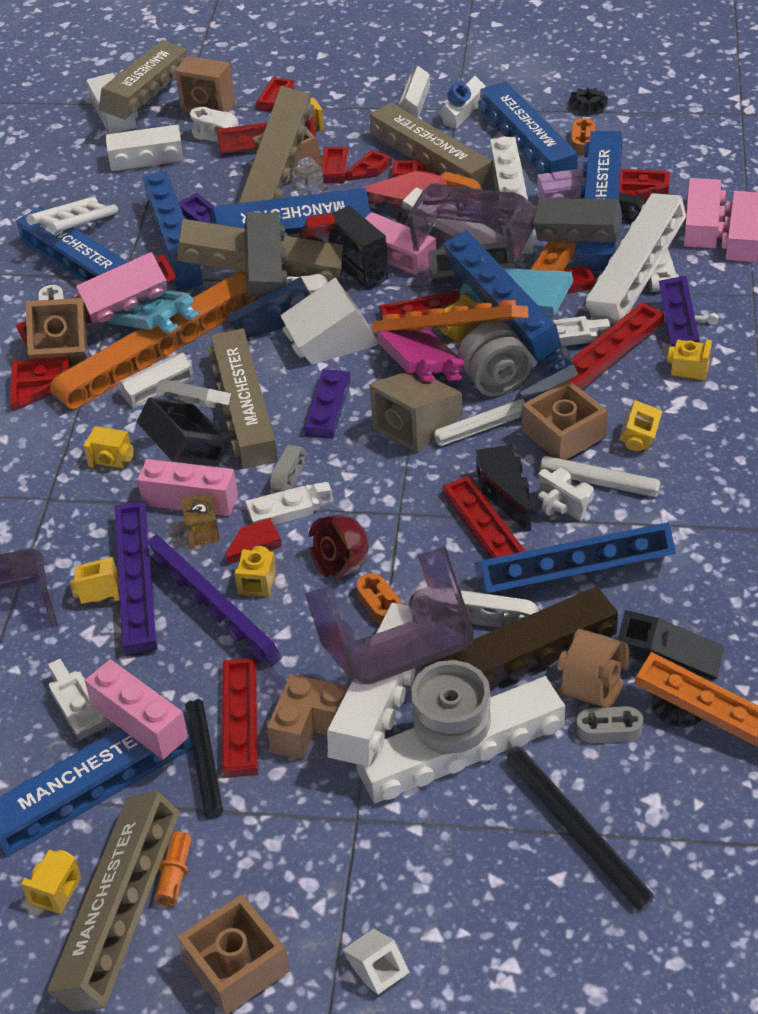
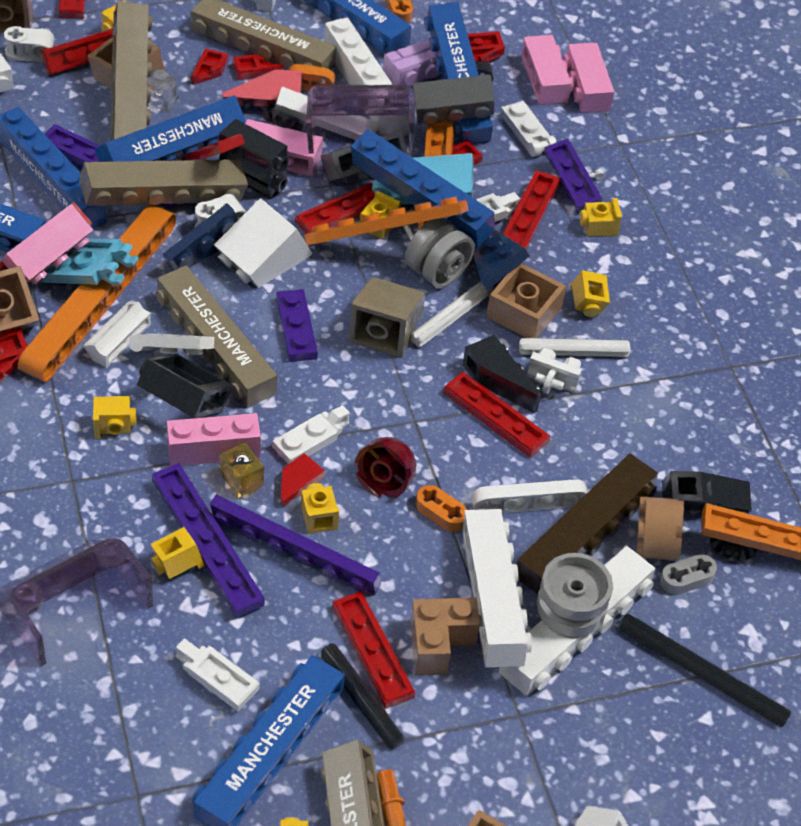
camera: 30 degrees left, 5 degrees up
(136, 709) = (298, 668): bright pink brick -> none
(264, 253) = (179, 185): dark grey brick -> none
(288, 468) = (297, 400): light grey beam -> none
(334, 164) = (176, 67): red tile -> none
(421, 353) = (369, 260): dark pink tile -> none
(437, 628) = (520, 536): clear purple windscreen -> none
(574, 558) = (595, 432): blue brick -> none
(636, 258) = (514, 127): white brick -> none

